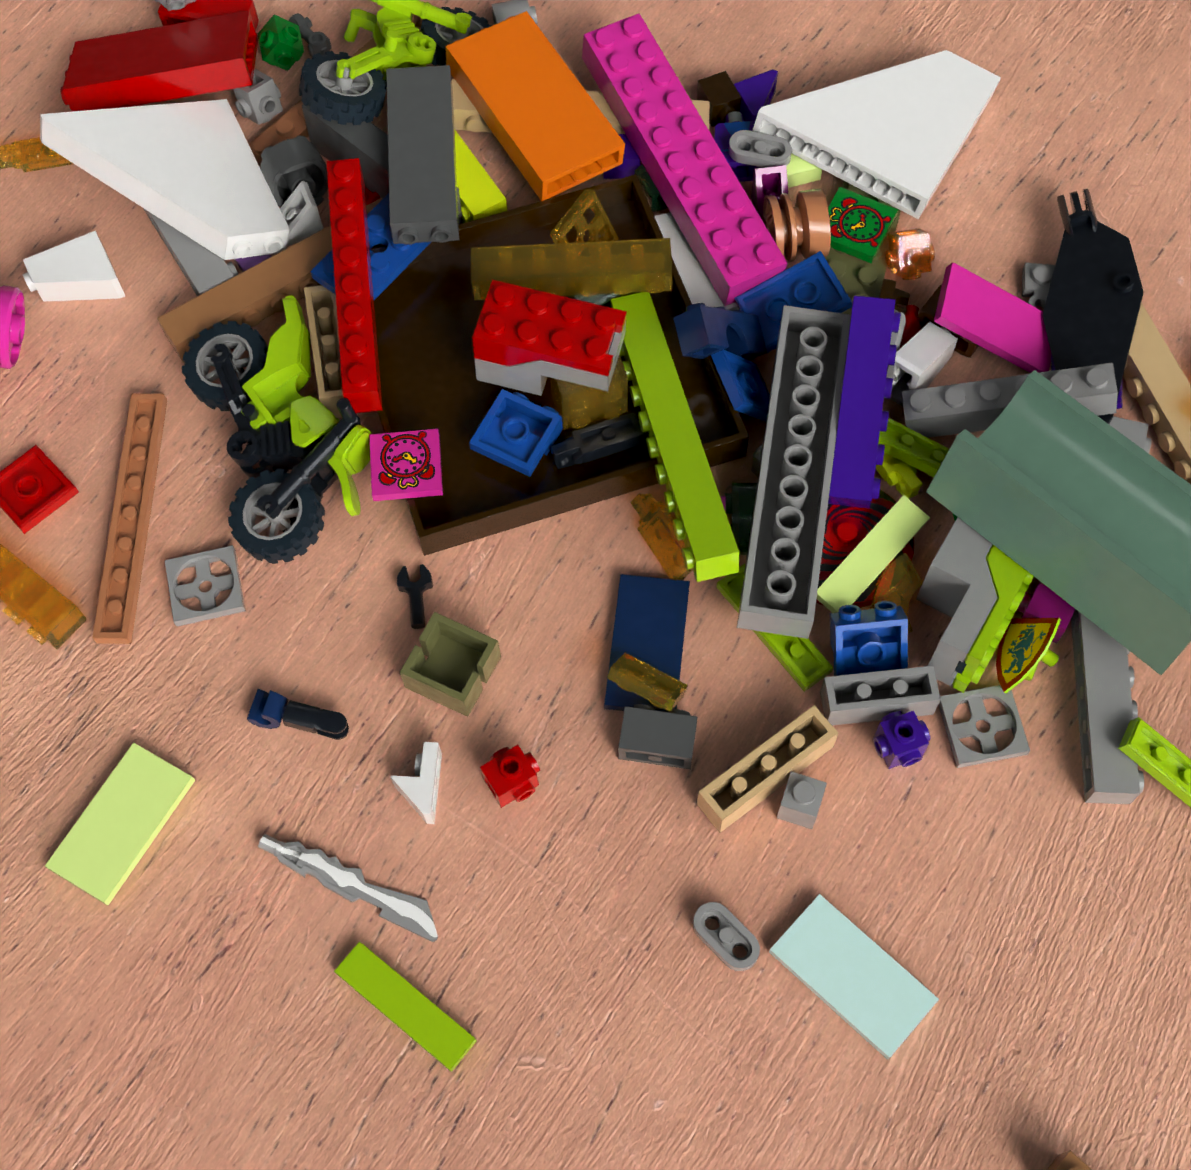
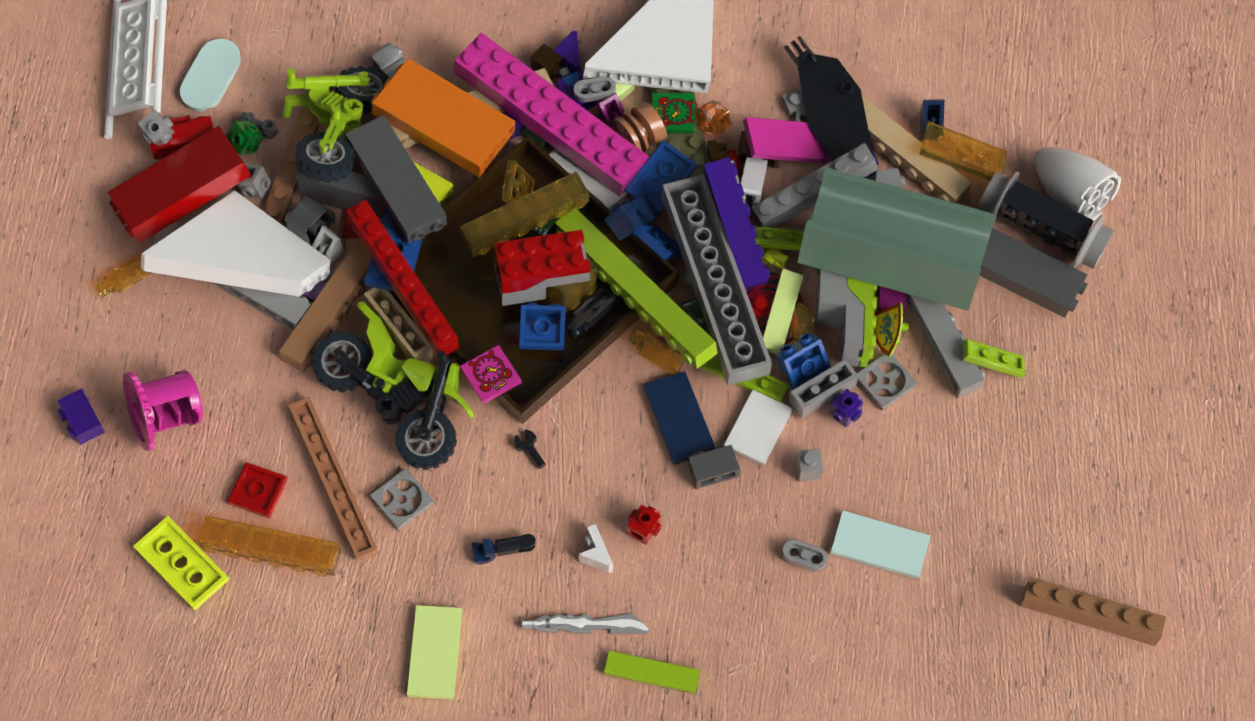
camera: 30 degrees left, 0 degrees up
(73, 271) = (202, 344): white slope -> none
(454, 665) = (577, 478): olive piece -> none
(647, 682) = (697, 438): clear yellow plate -> none
(753, 708) = (758, 427): none -> white tile
(766, 768) = (782, 456): tan brick -> none

